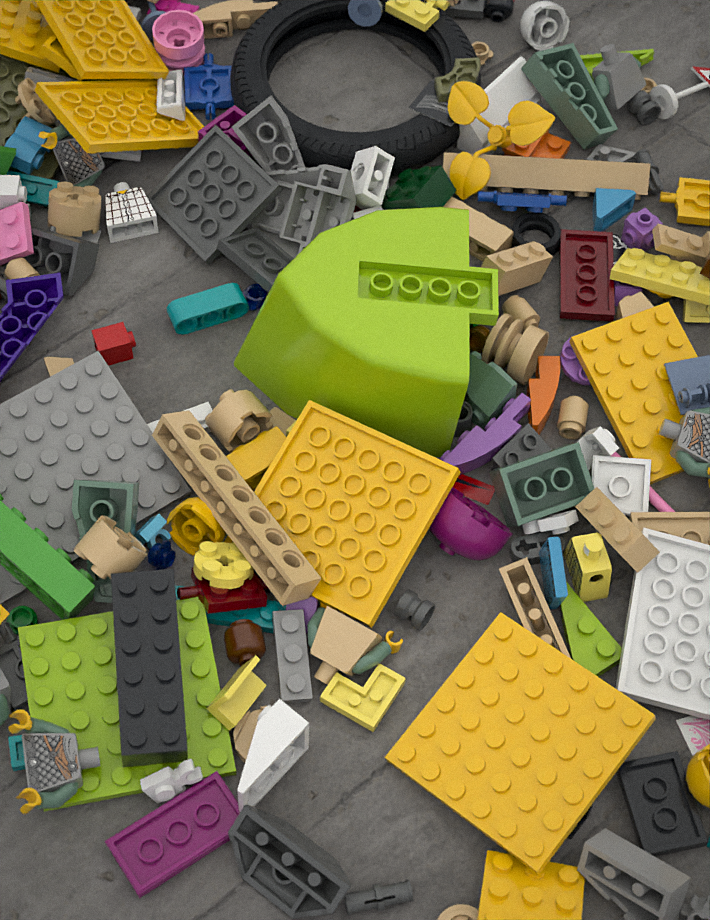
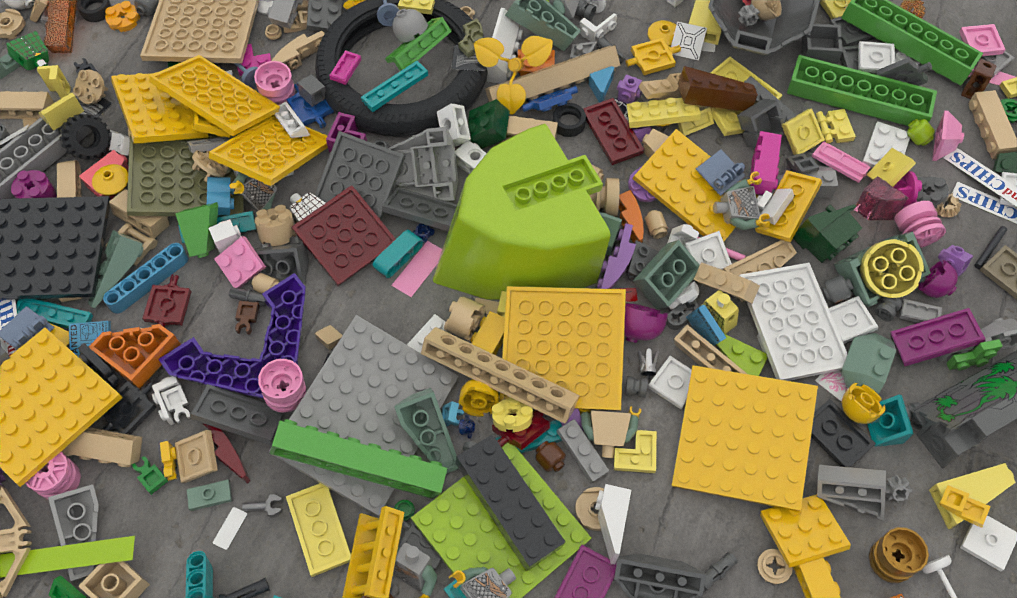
camera: 25 degrees left, 5 degrees up
(110, 549) = (443, 440): tan brick -> none
(114, 343) = (352, 303): red brick -> none
(151, 255) = (344, 235): none -> dark red plate
(167, 782) = (558, 567): white plate -> none
(217, 66) = (311, 90): none -> dark grey brick
(217, 342) = (418, 269): none -> bright pink sticker
(237, 695) = (566, 491): light yellow panel -> none
(269, 137) = (378, 124): light grey wedge -> none
(271, 52) = (345, 67): none -> dark pink plate
(324, 97) = (394, 86): none -> teal plate
(380, 28) = (407, 24): none -> light grey cylinder
(384, 60) = (413, 50): none -> bright green fence
(444, 591) = (648, 368): none -> flat silver piece
(465, 623) = (672, 382): none -> white plate
(519, 266) = (575, 141): tan brick -> none
(652, 140) = (592, 32): none -> white bracket

